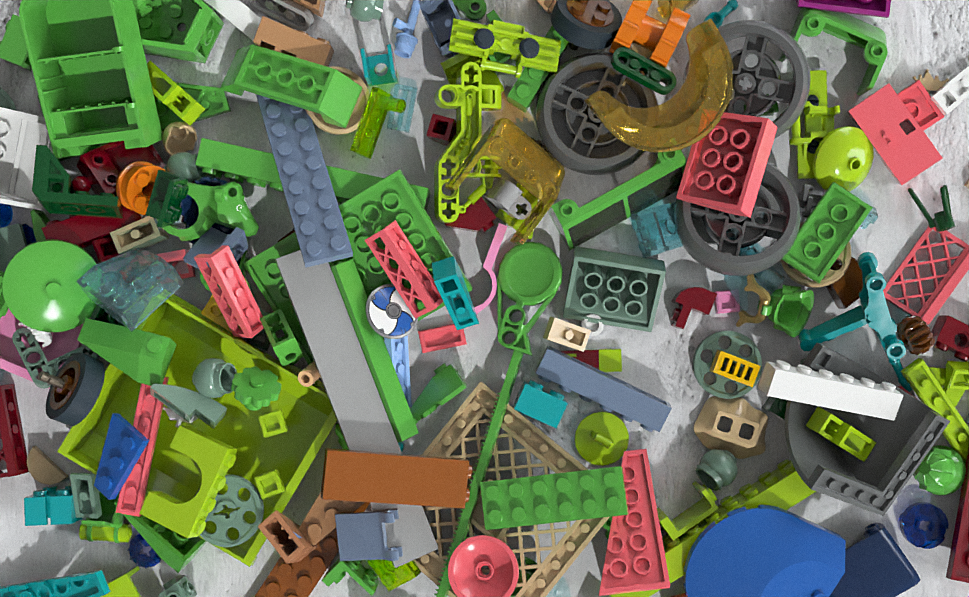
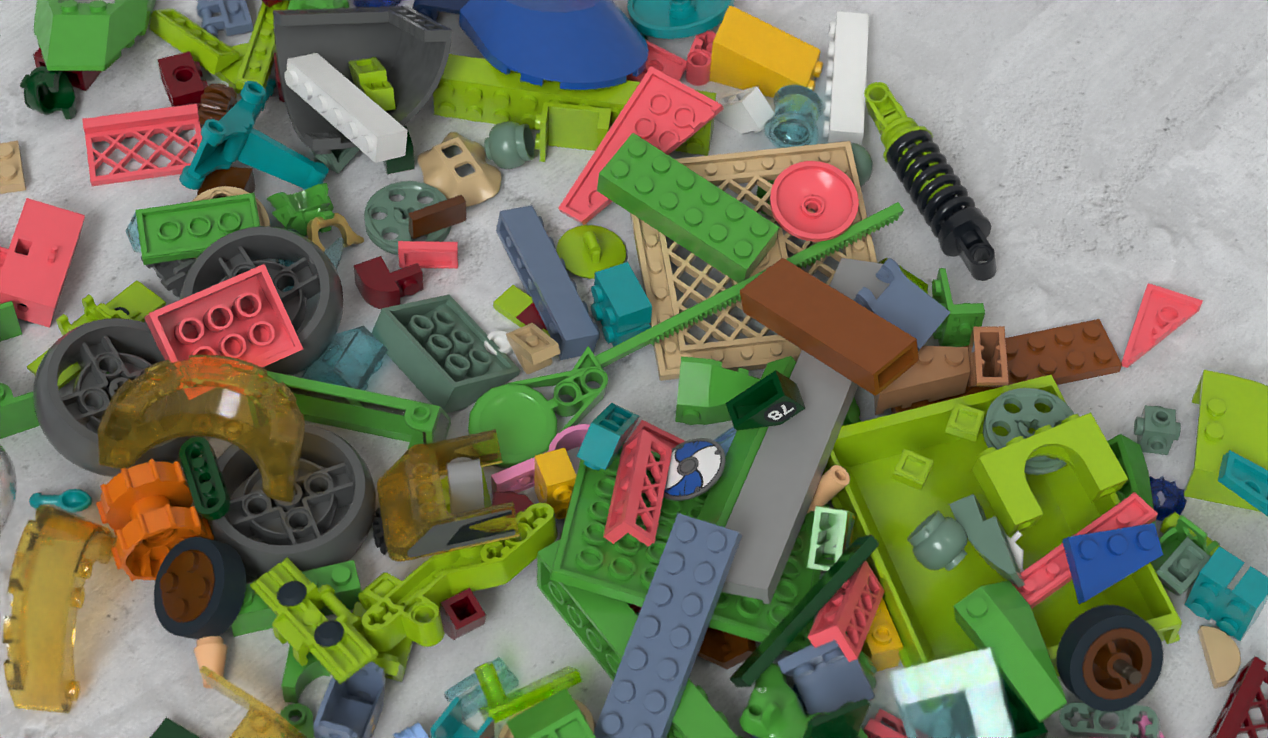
camera: 140 degrees left, 35 degrees down
(254, 274) = (804, 611): none -> dark green tile
(255, 387) = (899, 498): bright green plant -> none
(379, 384) = (766, 403): none -> dark green slope
(467, 250) = (554, 480): none -> yellow brick
(687, 346) = (428, 254): none -> coral tile
(705, 372) = (437, 216): none -> reddish brown tile
(718, 361) = (396, 204): yellow slope -> none
(725, 302) = (346, 266): bright pink tile -> none
(843, 158) = (107, 278): lime dish -> none
(943, 219) = (81, 169): dark green plant -> none

